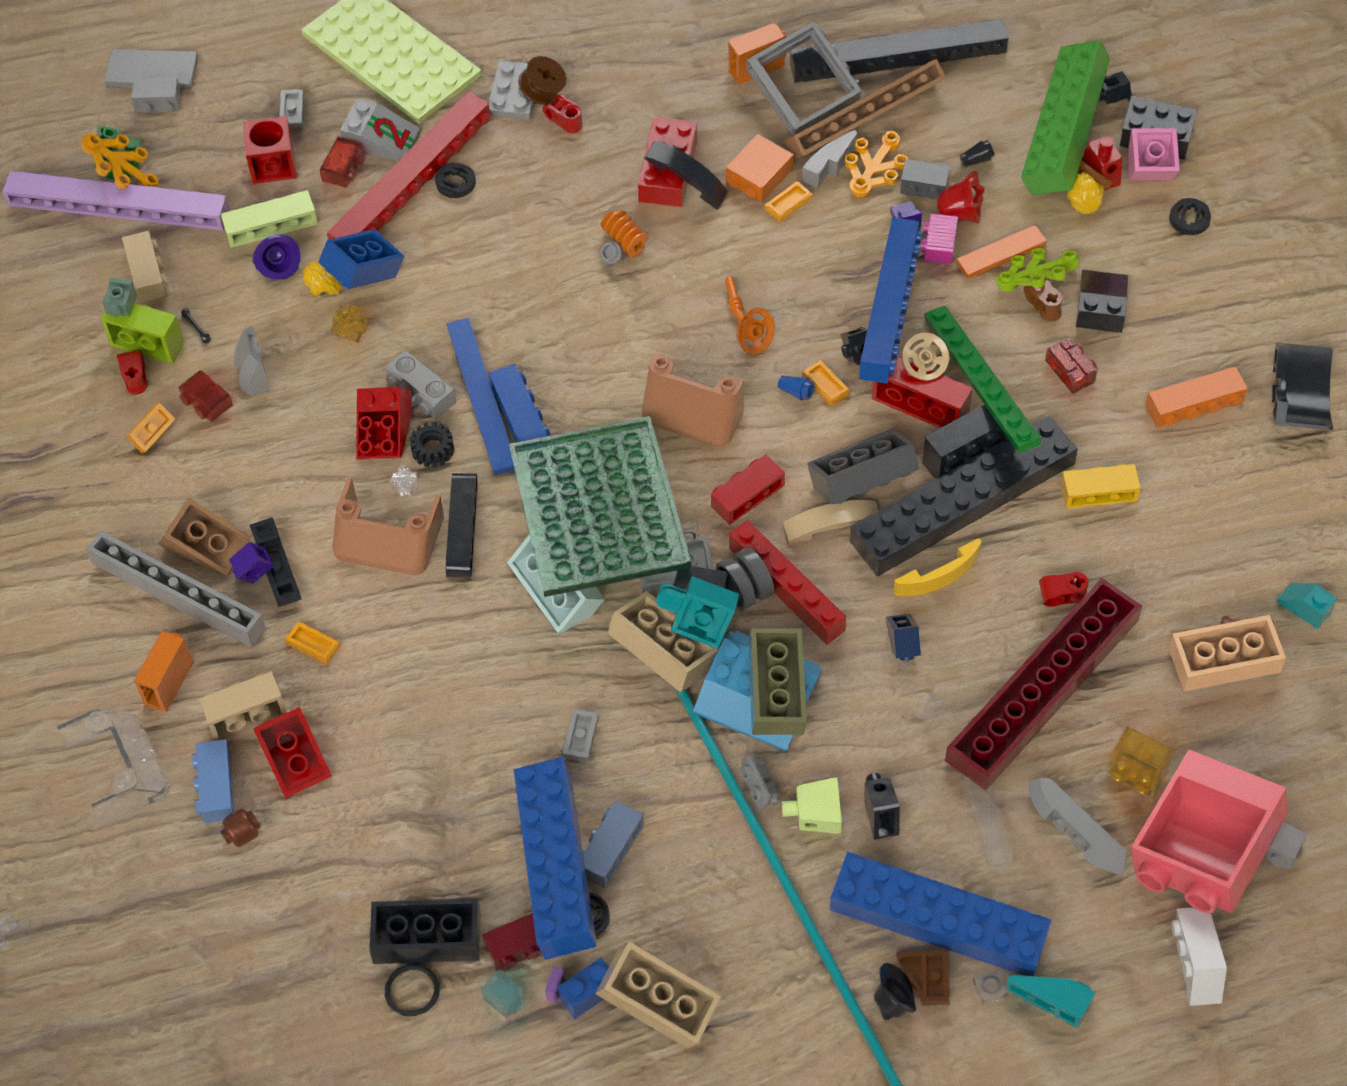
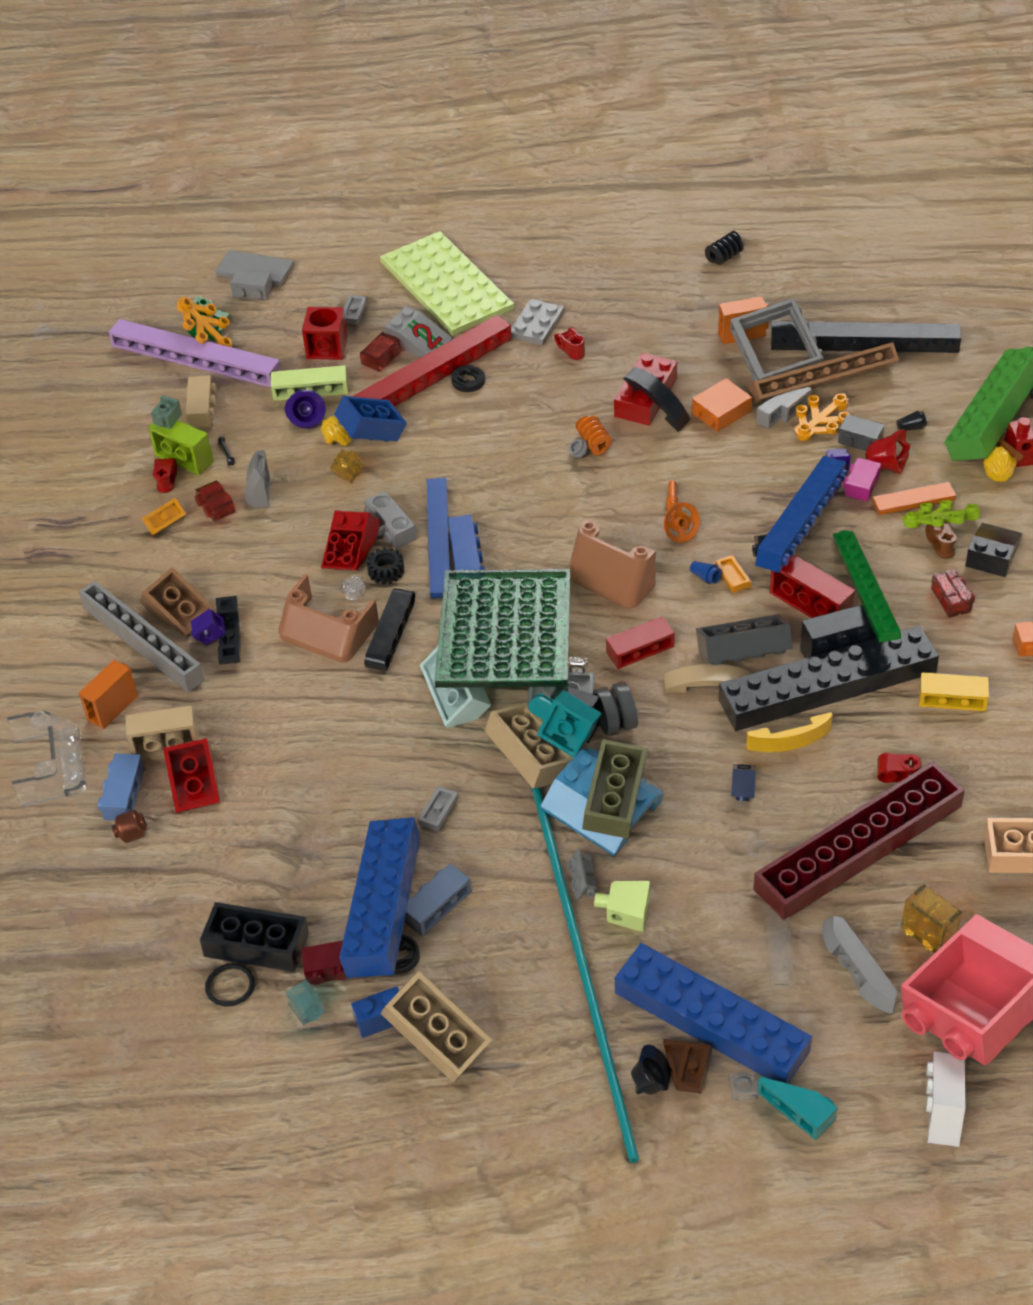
camera: 15 degrees right, 10 degrees down
(312, 642) = (239, 697): light orange tile -> none
(542, 80) = (559, 314): reddish brown piece -> none
(556, 979) = (353, 996): medium lavender tile -> none
(788, 201) = (740, 434): light orange tile -> none
(792, 585) = (656, 723): red brick -> none
(881, 797) = (683, 904): black torso -> none
(927, 355) = (819, 558): tan dish -> none

